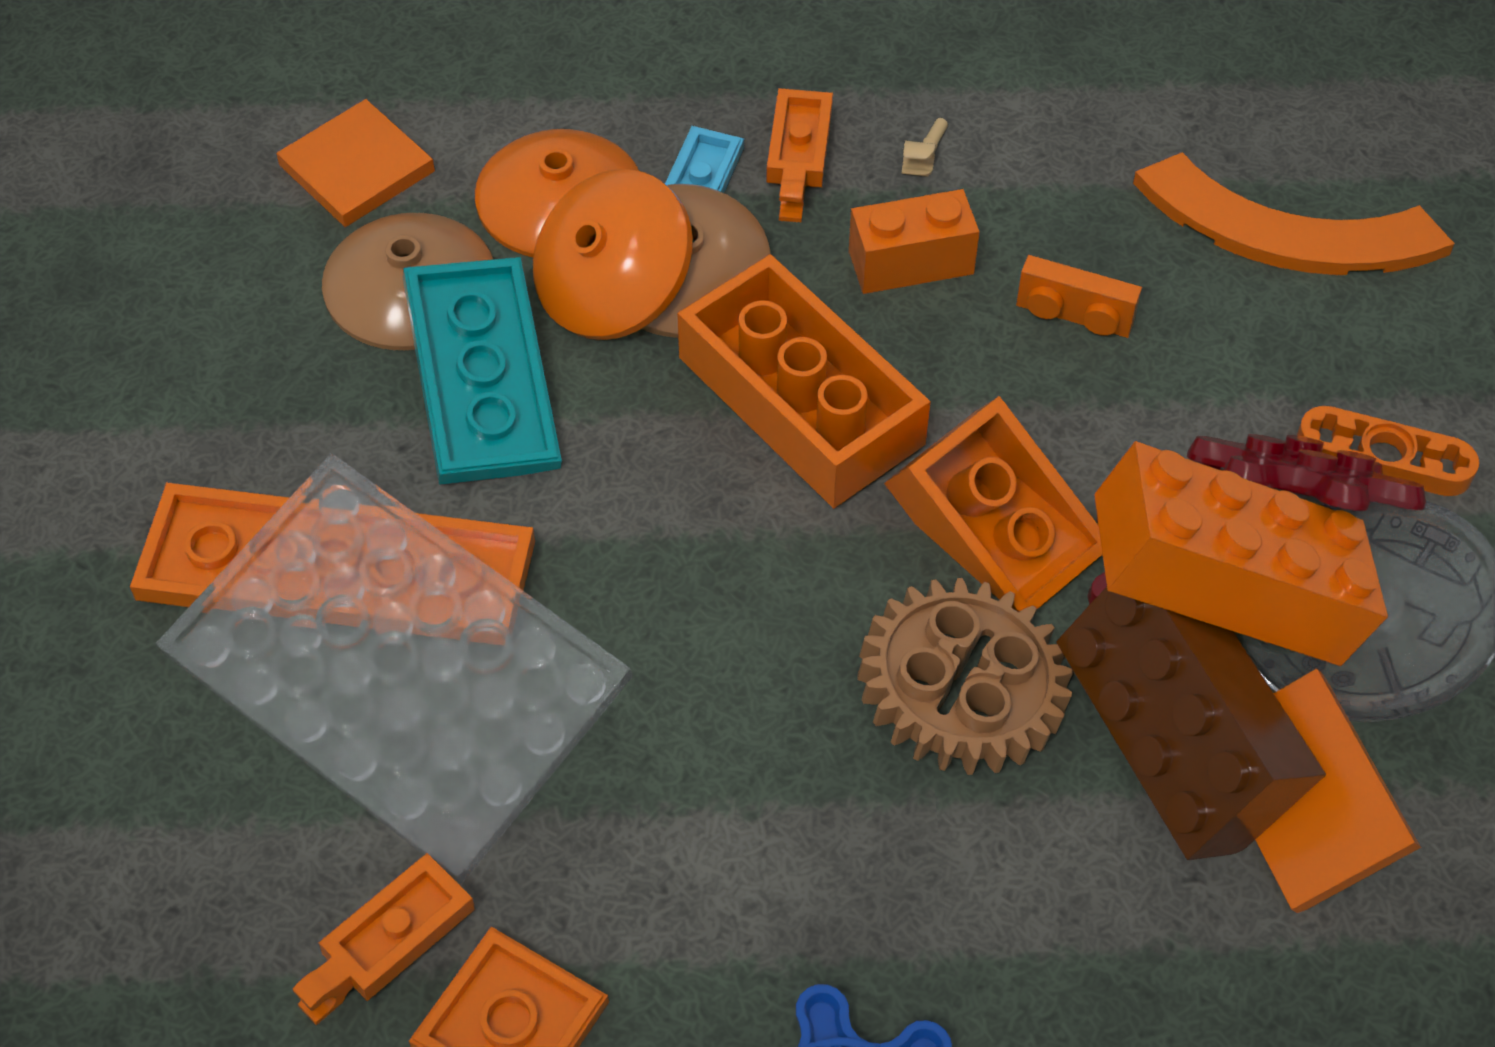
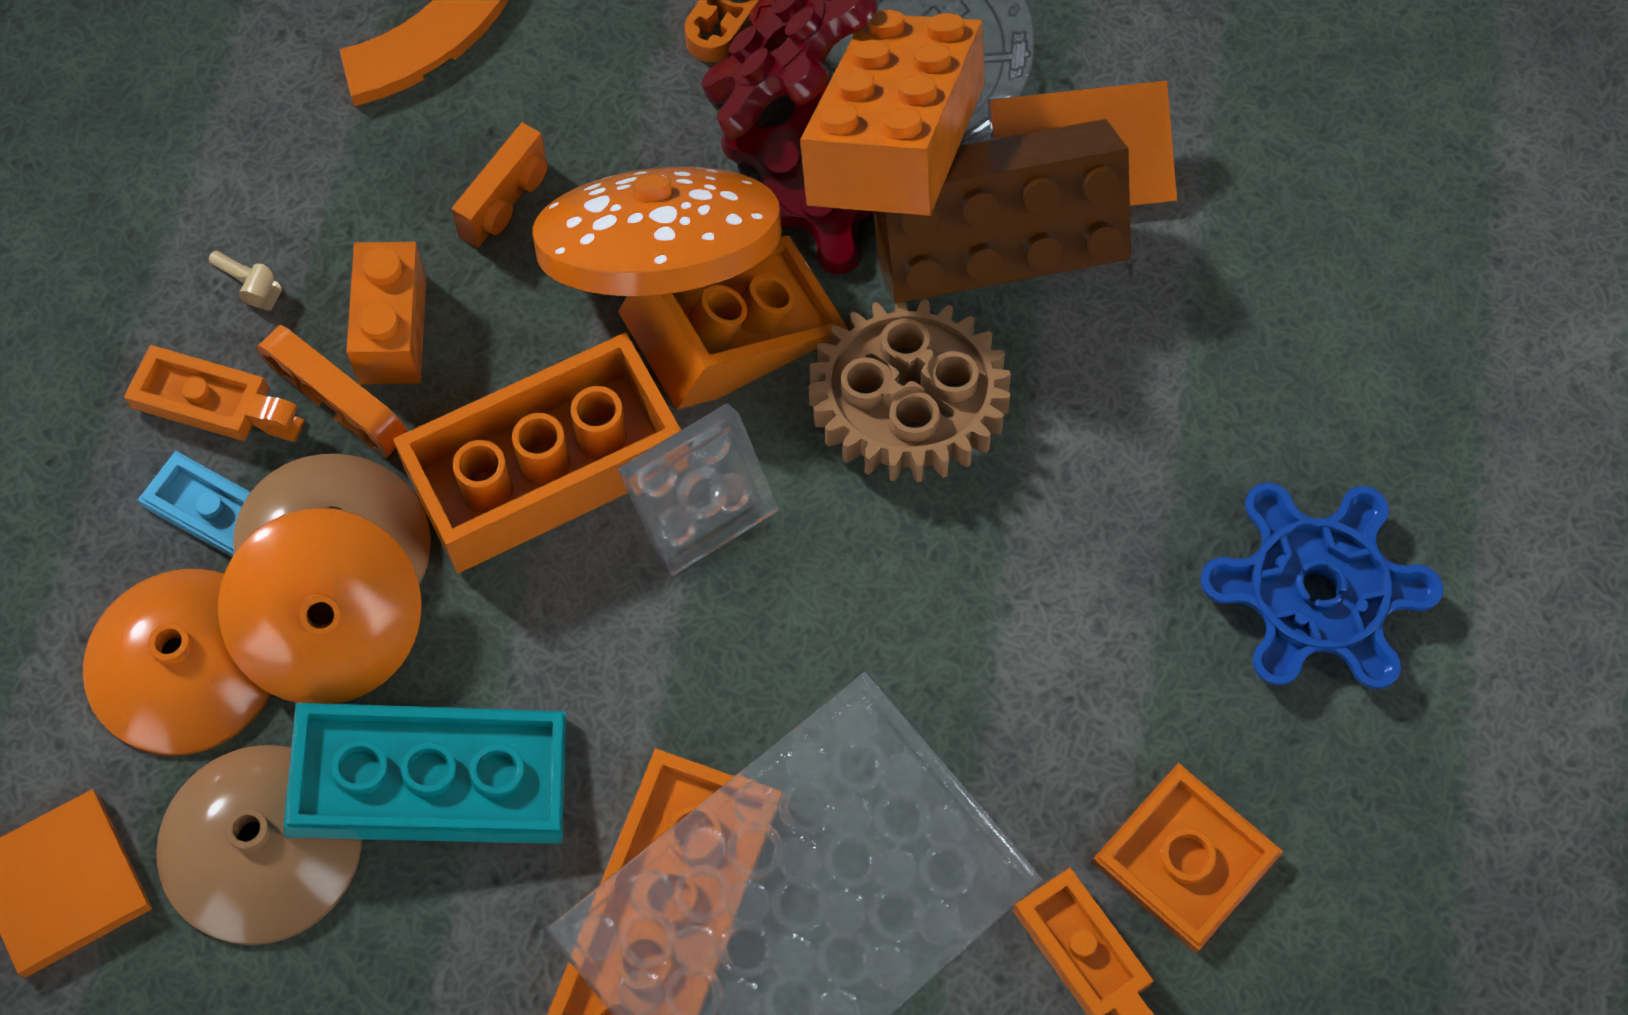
camera: 80 degrees left, 10 degrees up
(792, 503) = (699, 489): none -> clear plate
(827, 220) = (326, 383): none -> orange beam
(1044, 402) = (657, 231): none -> orange dish

